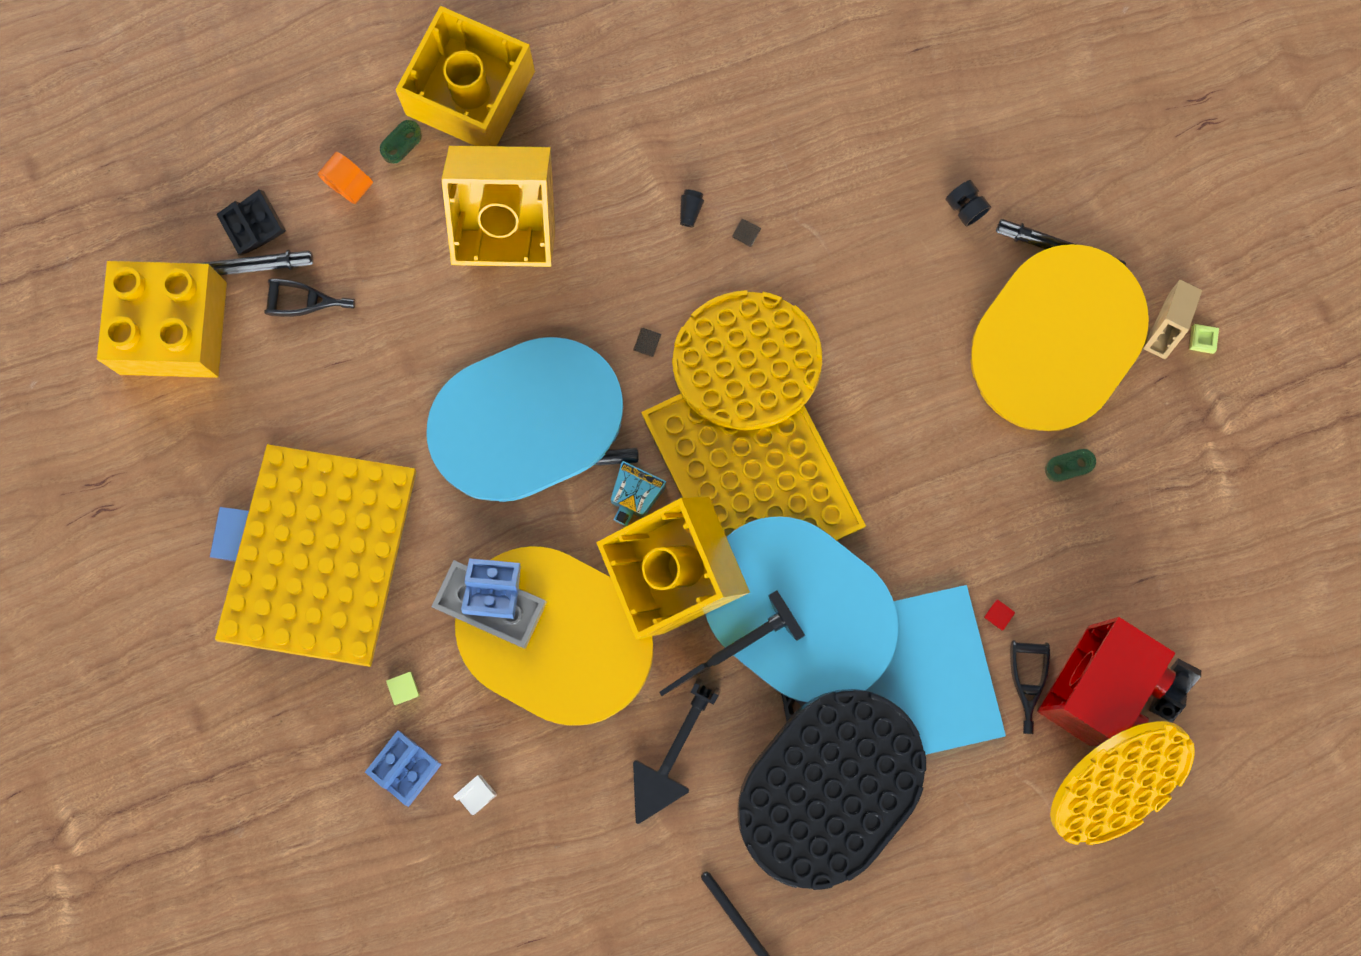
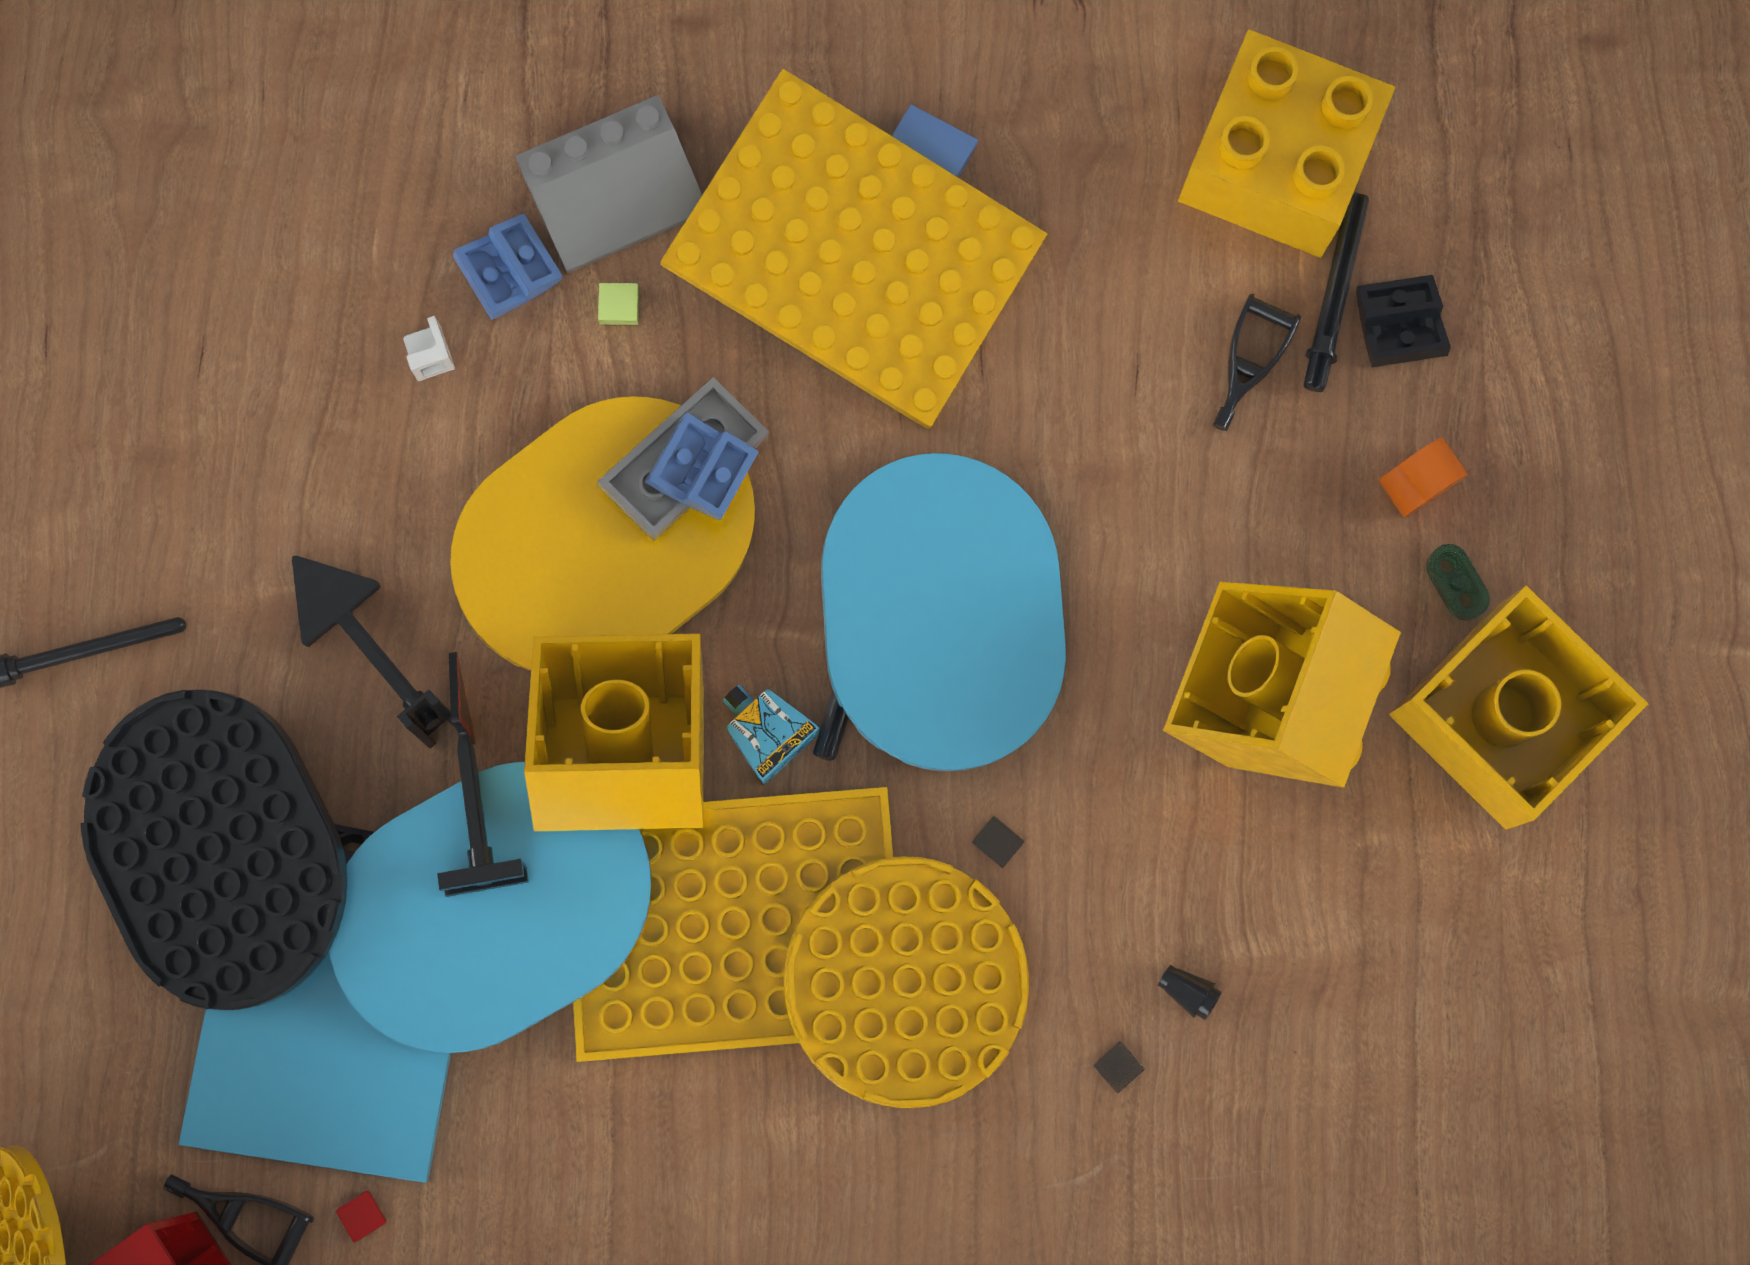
camera: 110 degrees right, 0 degrees up
(326, 722) = (611, 183): none -> light grey slope

